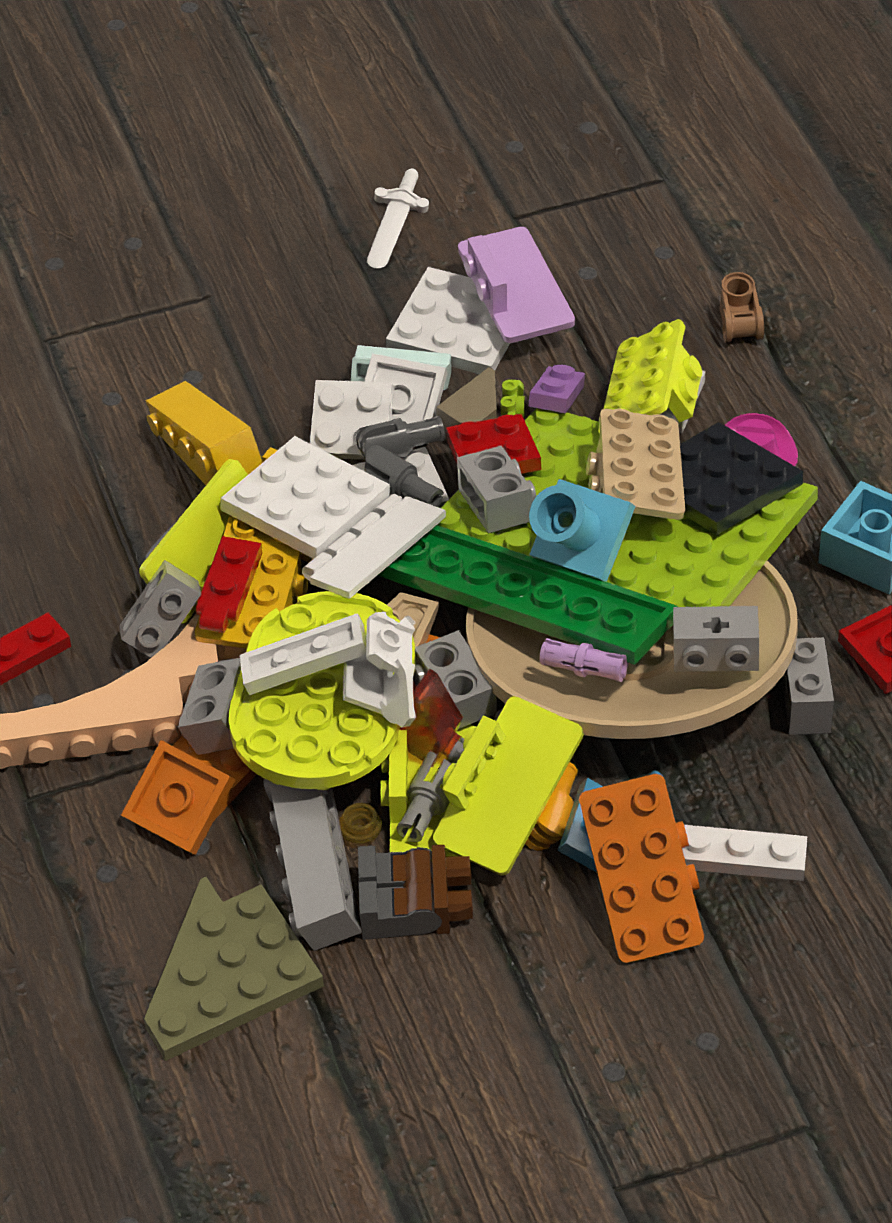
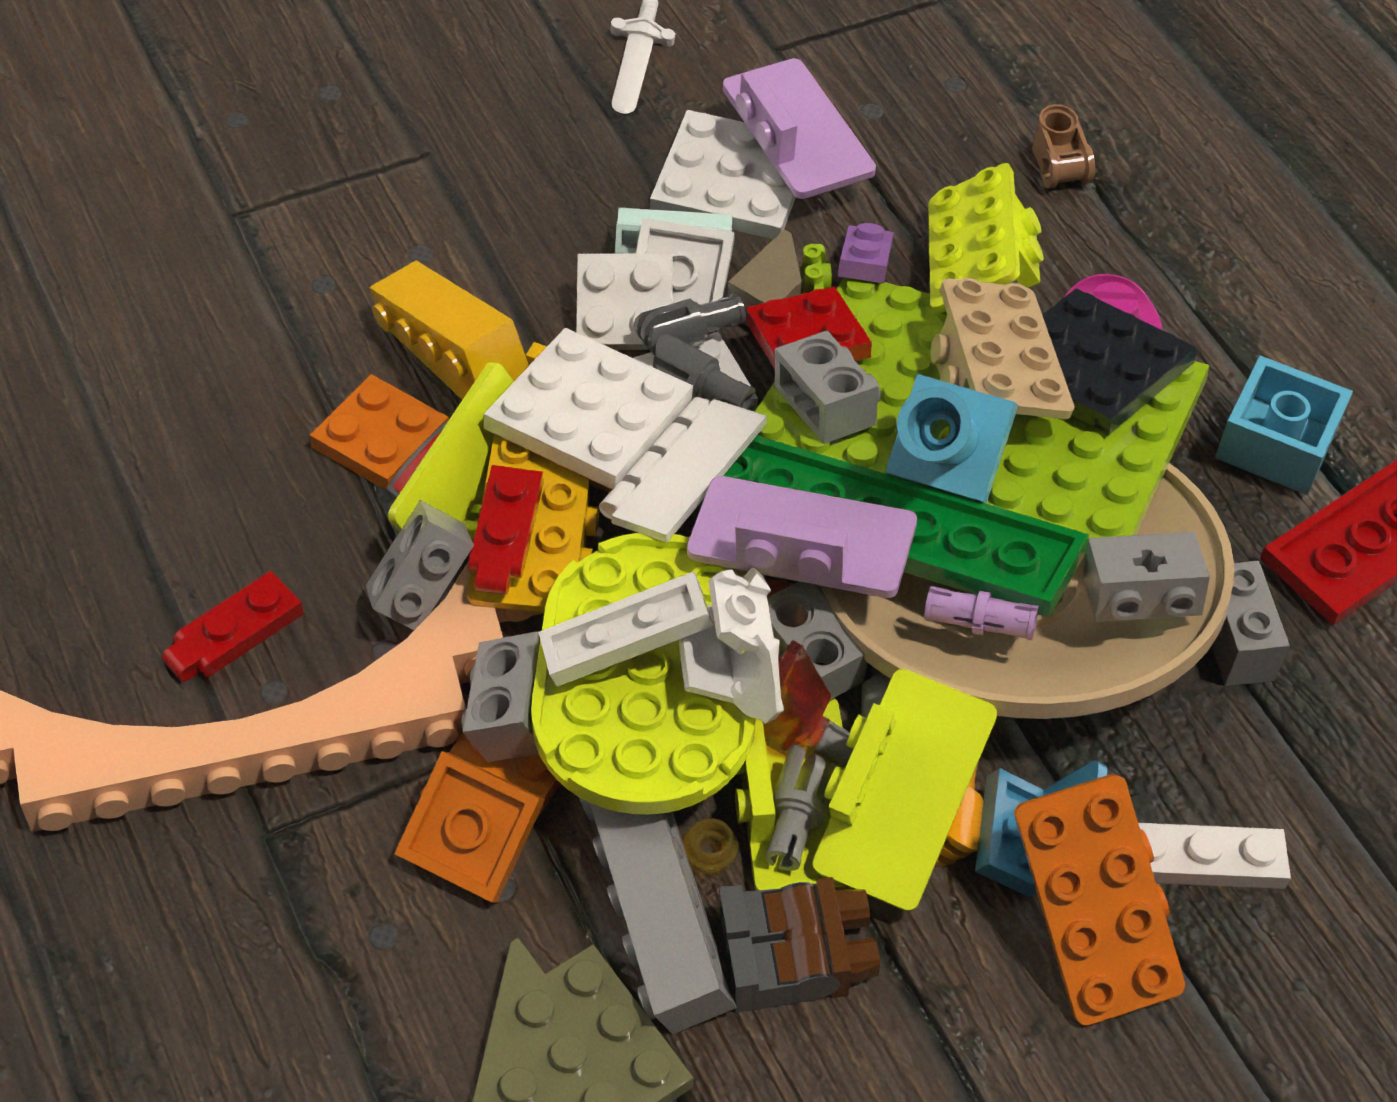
camera: 10 degrees left, 5 degrees up
(139, 512) = (376, 430): none -> orange plate
(453, 597) = (803, 536): none -> lavender bracket

